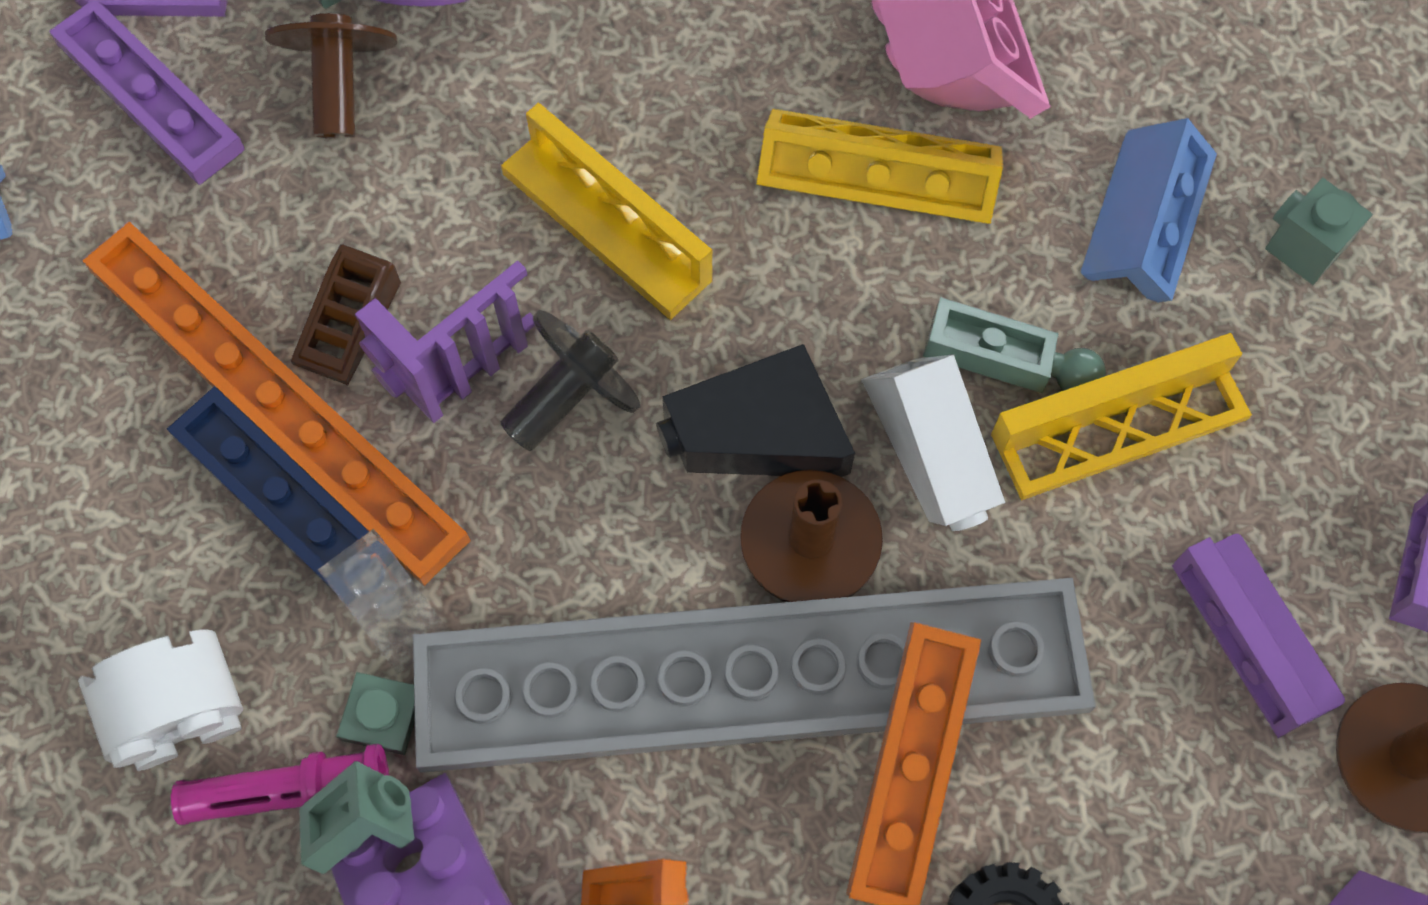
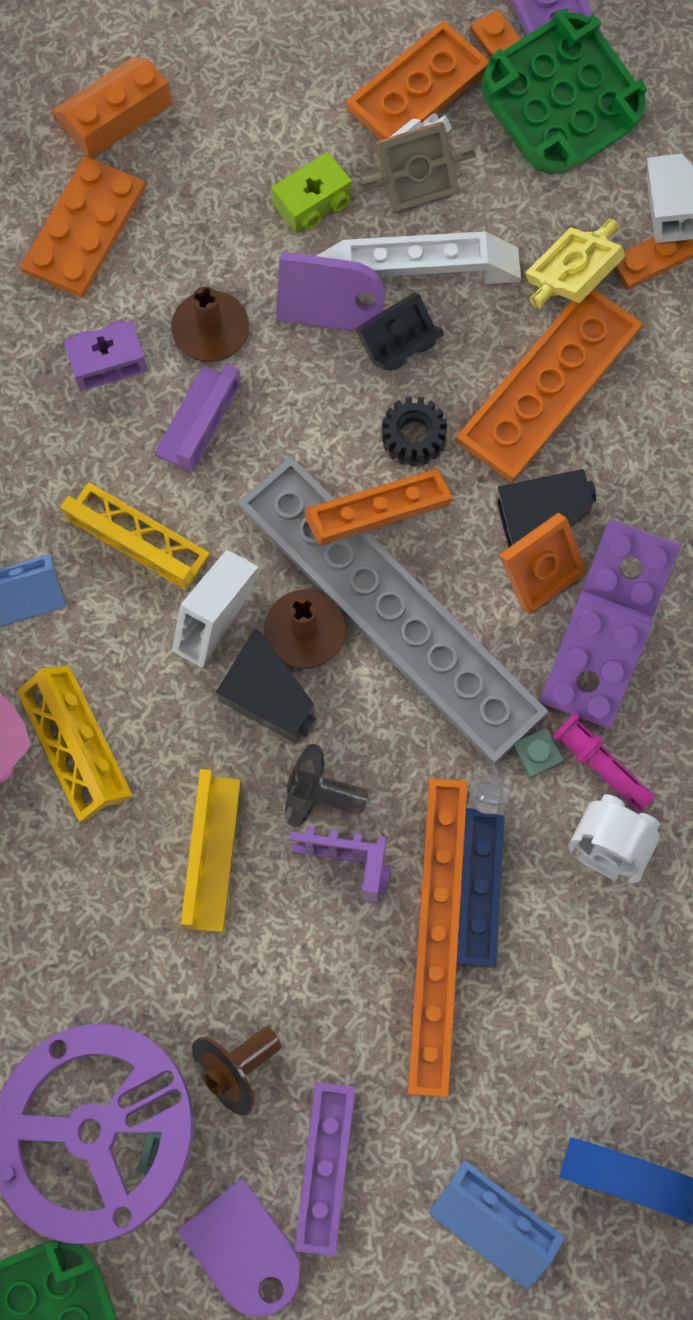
camera: 125 degrees left, 5 degrees up
(337, 283) = (334, 933): reddish brown slope -> none
(349, 812) = (592, 709): sand green bracket -> none
(1007, 349) = (139, 607): sand green plate -> none

